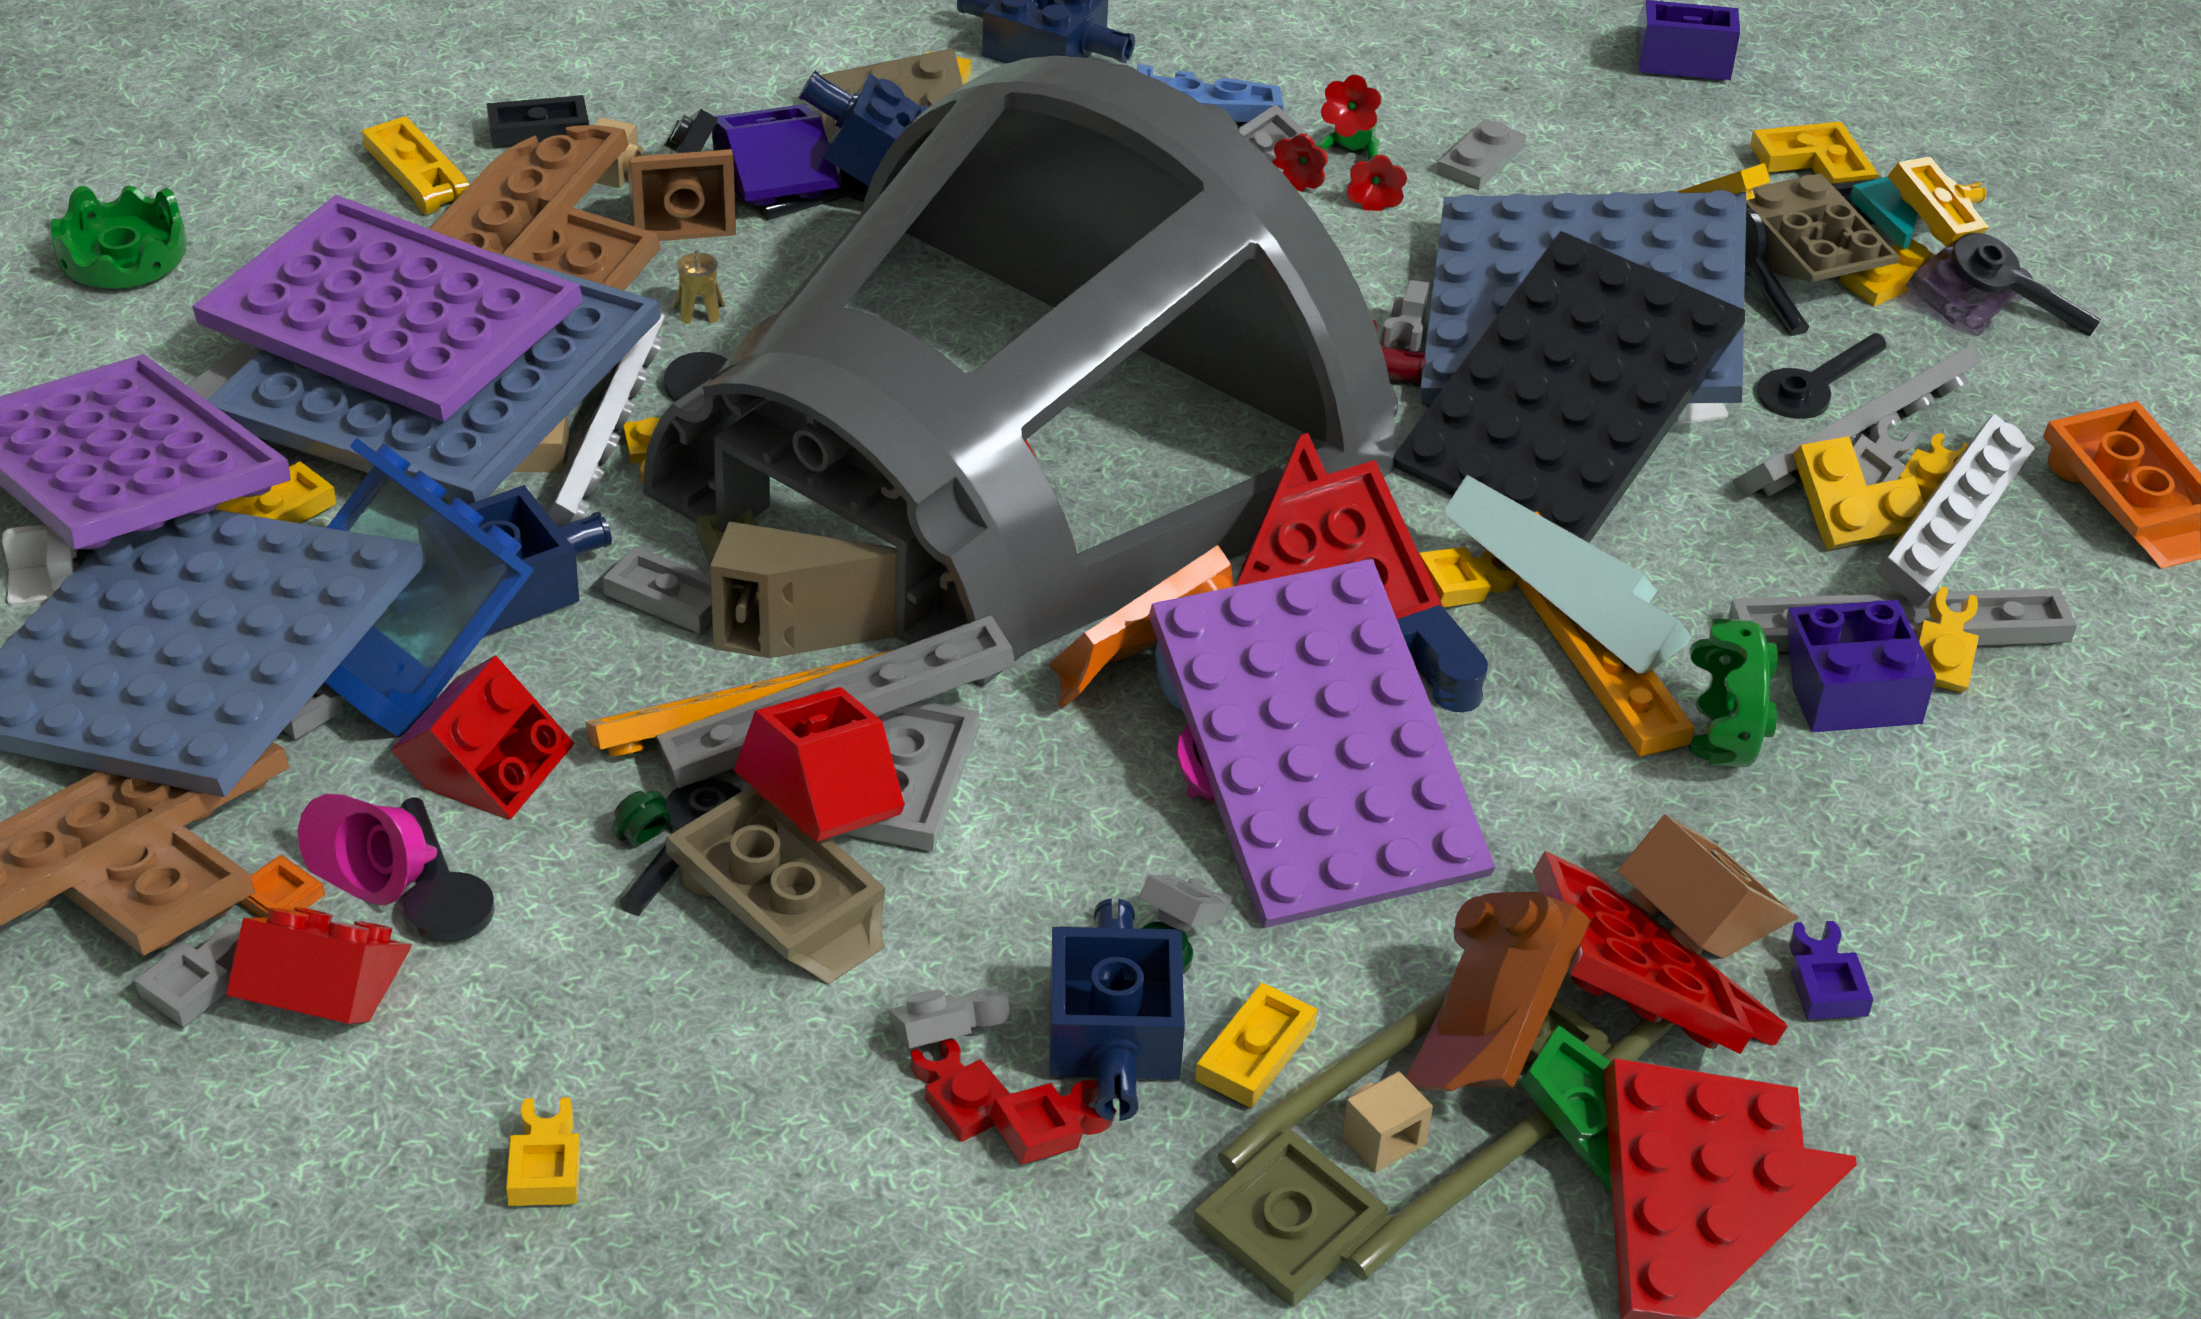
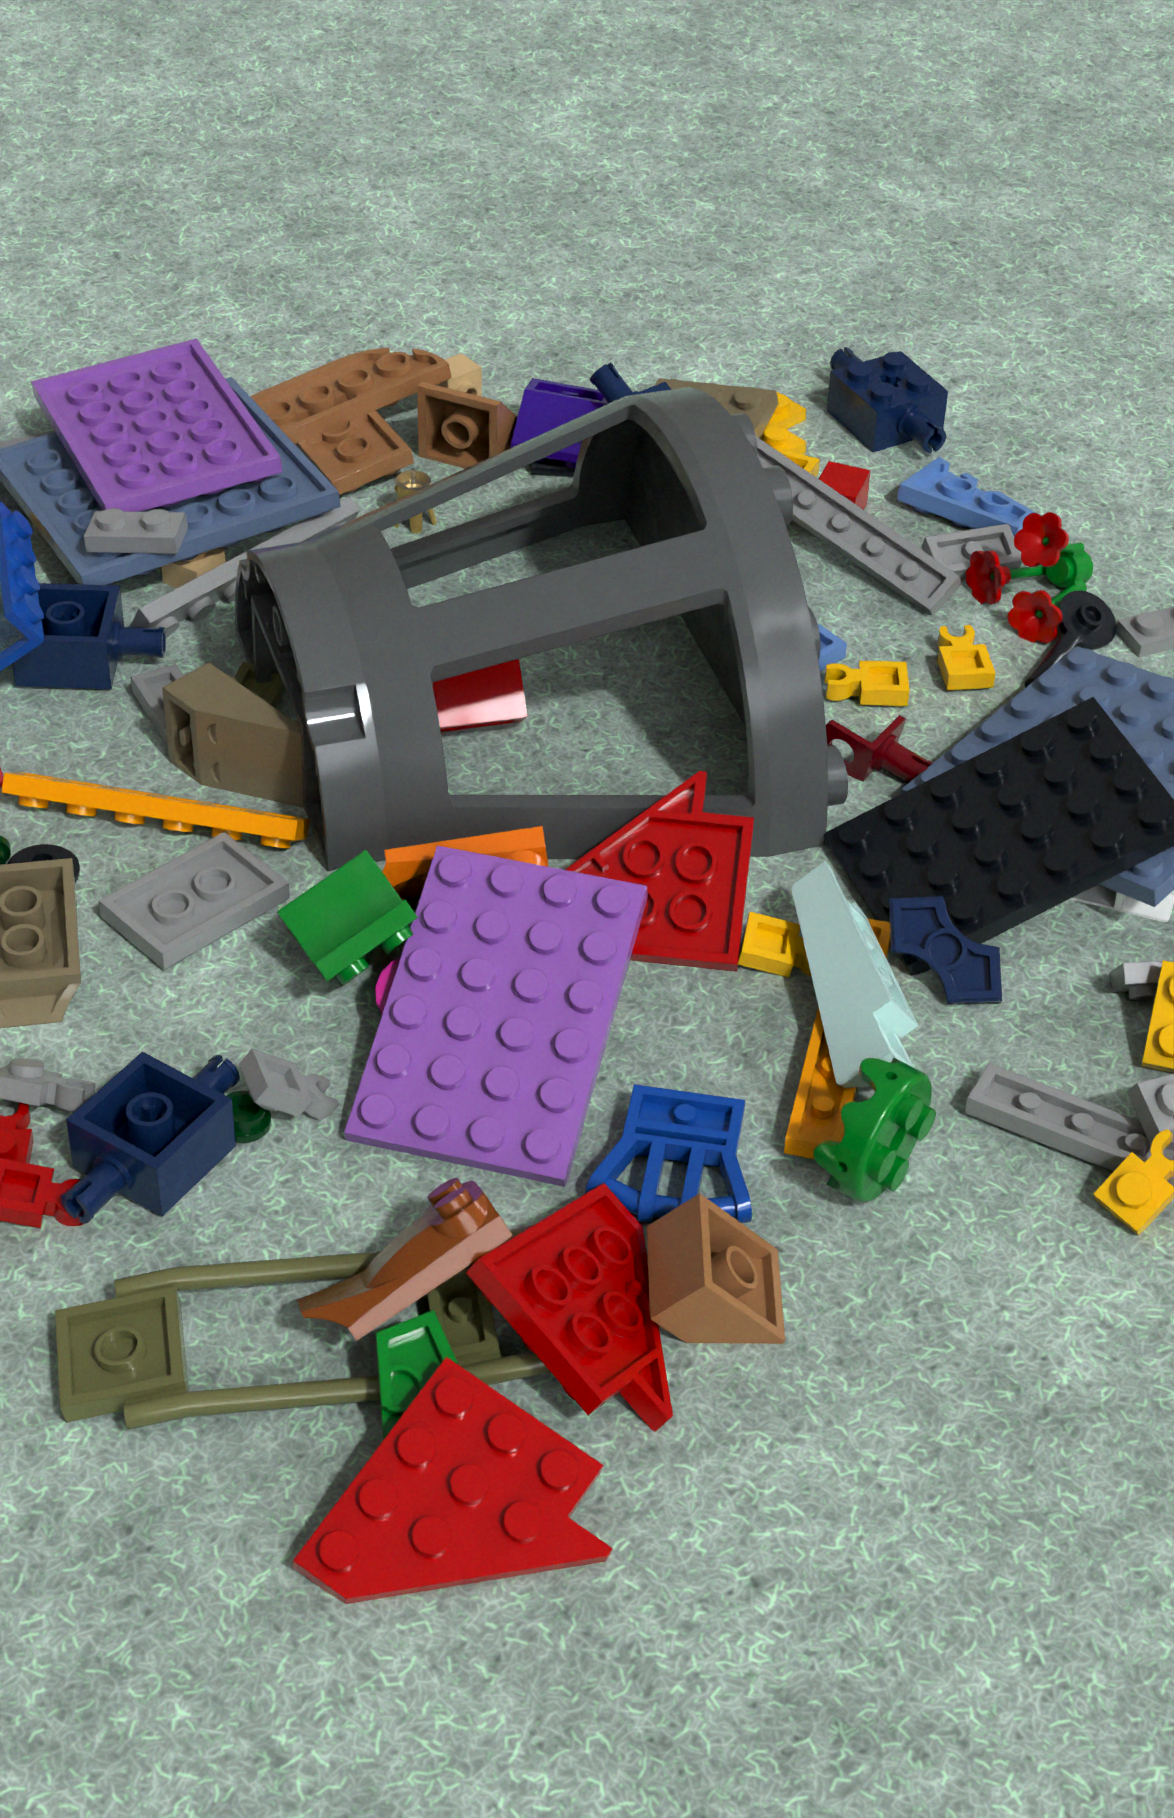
camera: 35 degrees right, 0 degrees up
(92, 230) = (64, 331): green plate -> none
(415, 163) = (314, 339): yellow plate -> none
(490, 422) = (136, 531): none -> light grey plate
(546, 117) = (432, 339): black plate -> none
(690, 132) = (506, 386): black plate -> none
(822, 763) = (105, 862): red slope -> none
(879, 683) = (186, 827): light grey plate -> none
(1096, 715) = (348, 919): none -> green bracket
(1256, 1045) = (236, 1218): yellow plate -> none
(1360, 249) = (962, 662): none -> yellow plate
(1386, 1121) = (263, 1322): tan plate -> none
(1407, 317) = (946, 729): light grey plate -> none
(1422, 185) = (1085, 624): none -> black piece
(1445, 658) = (692, 991): dark blue leg -> none
(1562, 769) = (677, 1128): none -> blue plate
(1588, 507) = (964, 968): none -> dark blue tile
(1826, 980) = (747, 1401): dark purple plate -> none
(1857, 666) = (1038, 1164): dark purple slope -> none

